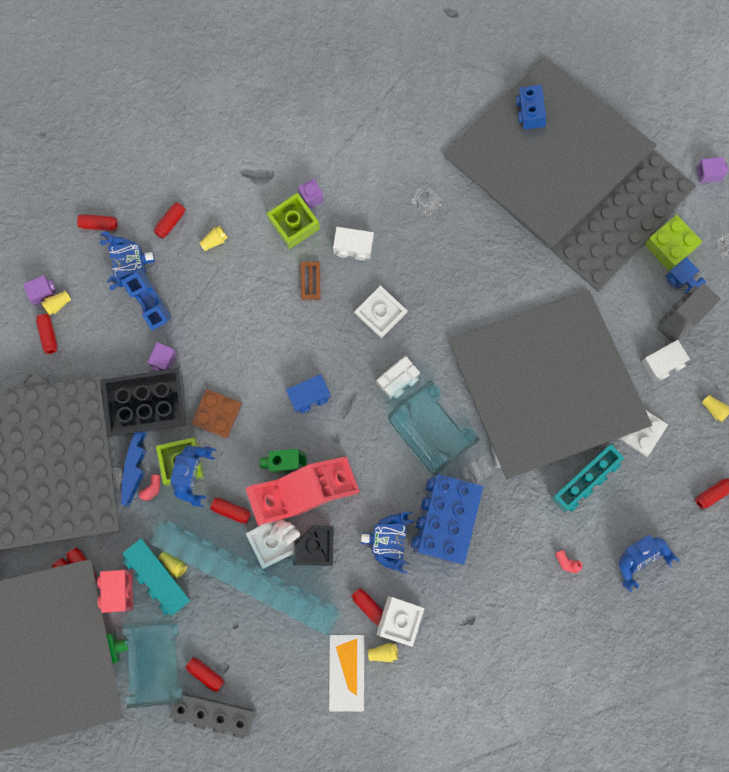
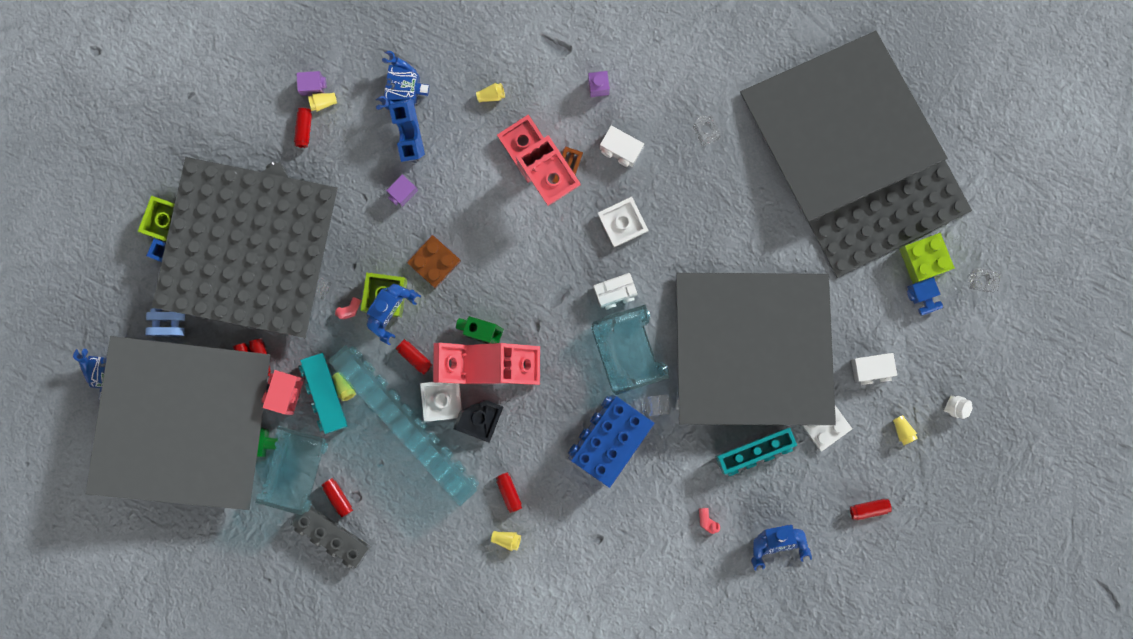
camera: 20 degrees right, 5 degrees up
(97, 222) = (387, 37): red piece -> none
(132, 474) = (336, 289): blue slope -> none
(144, 402) = (370, 227): black slope -> none
(169, 220) = (455, 60): red piece -> none
(281, 281) = (538, 160): none -> coral bracket
(284, 532) = (456, 396): white piece -> none
(293, 221) = (572, 104): lime brick -> none
(308, 394) = (525, 276): blue brick -> none
(346, 673) = (466, 544): white sticker -> none
(389, 540) = (549, 439): blue torso -> none
(400, 621) = (532, 517): white plate -> none
(532, 107) = (842, 77): blue brick -> none
(688, 312) = (911, 331): dark grey piece -> none
(712, 170) = (993, 201): medium lavender brick -> none

